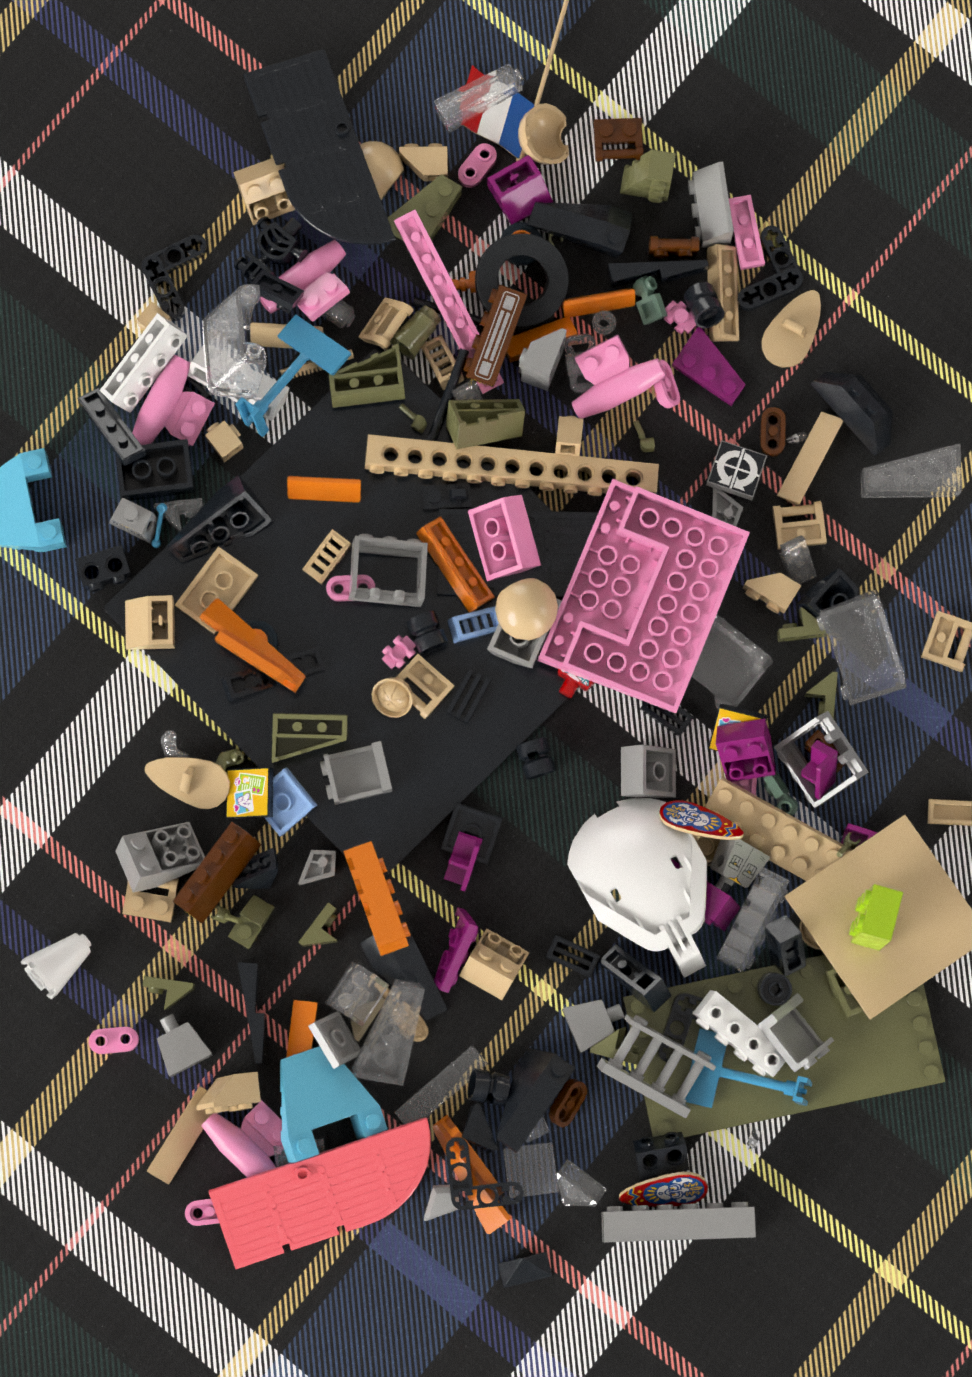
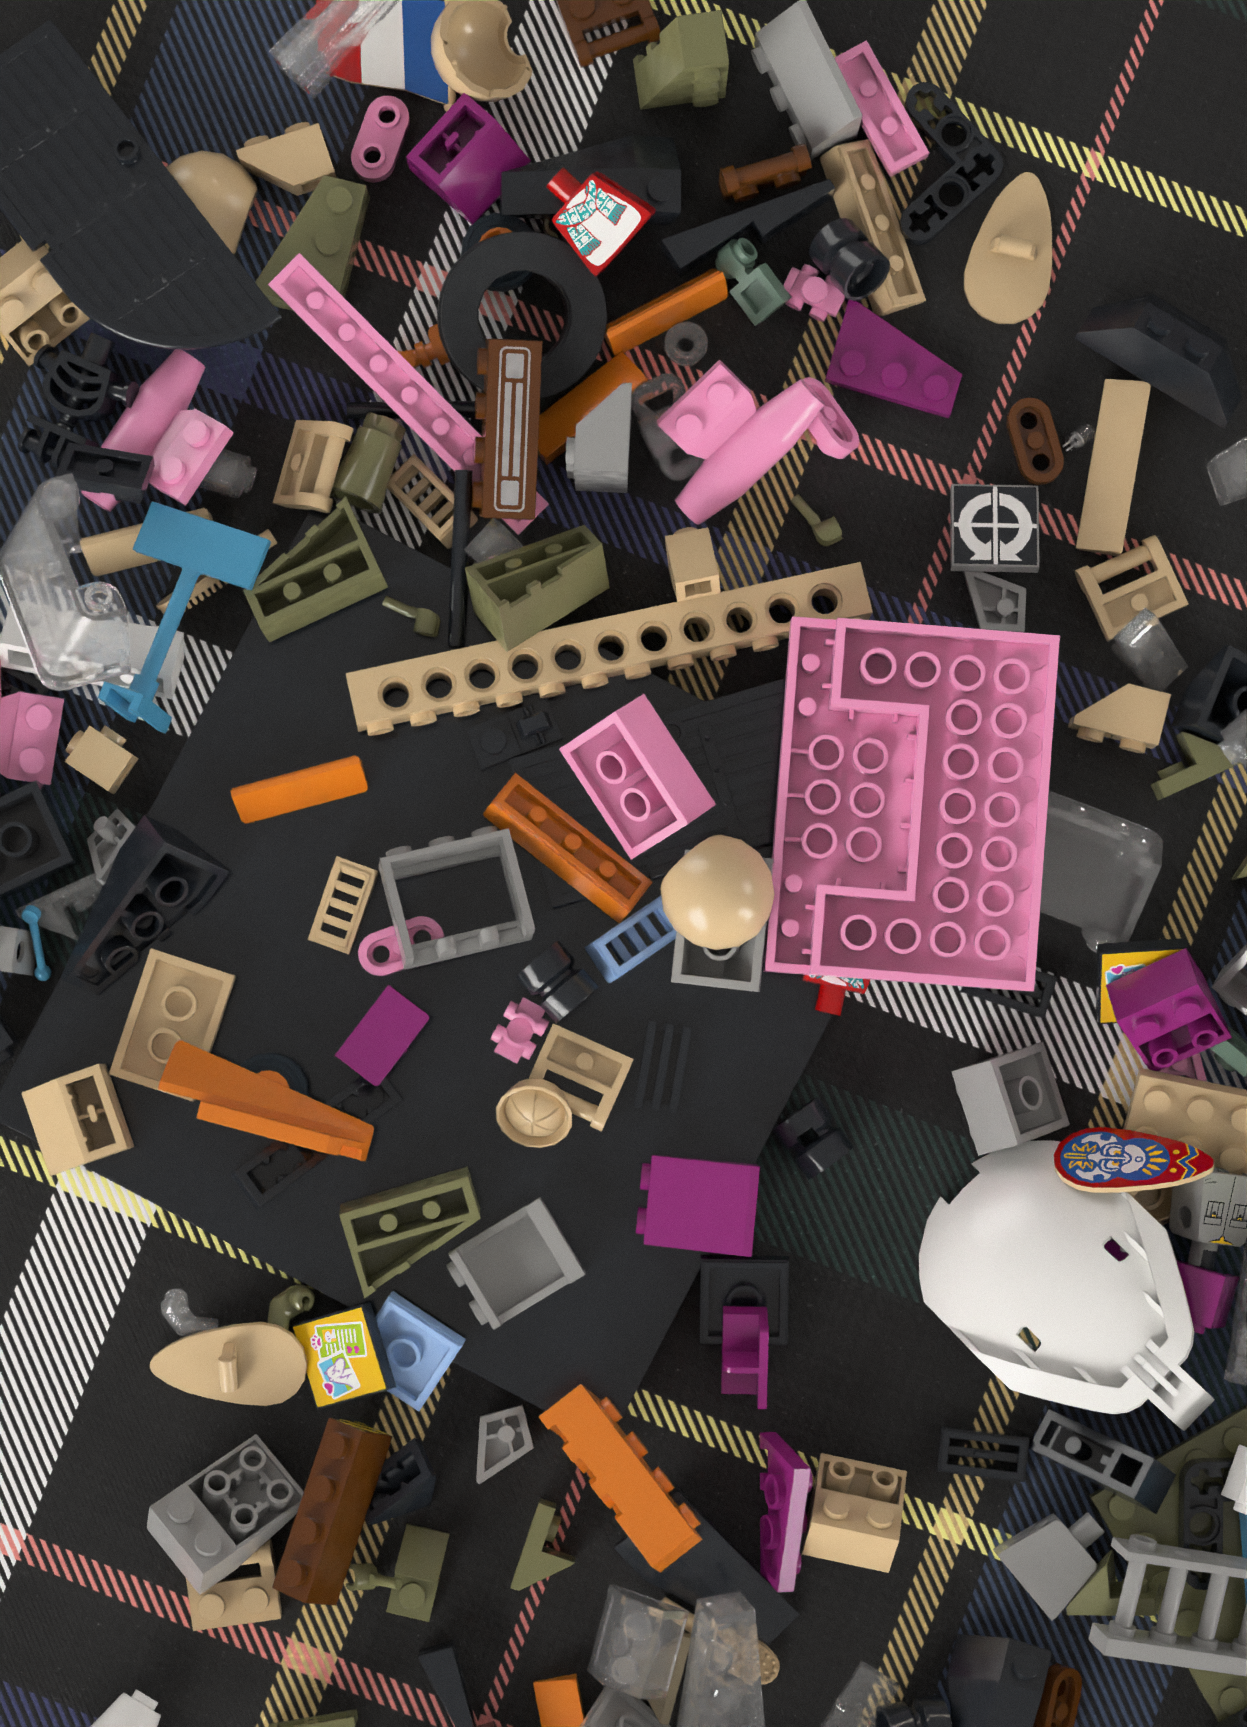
camera: 15 degrees left, 5 degrees up
(213, 484) = (107, 840): none -> light grey piece
(325, 630) = (382, 1036): none -> magenta panel
(464, 772) = (699, 1204): none -> magenta slope
(577, 240) = (597, 216): none -> torso

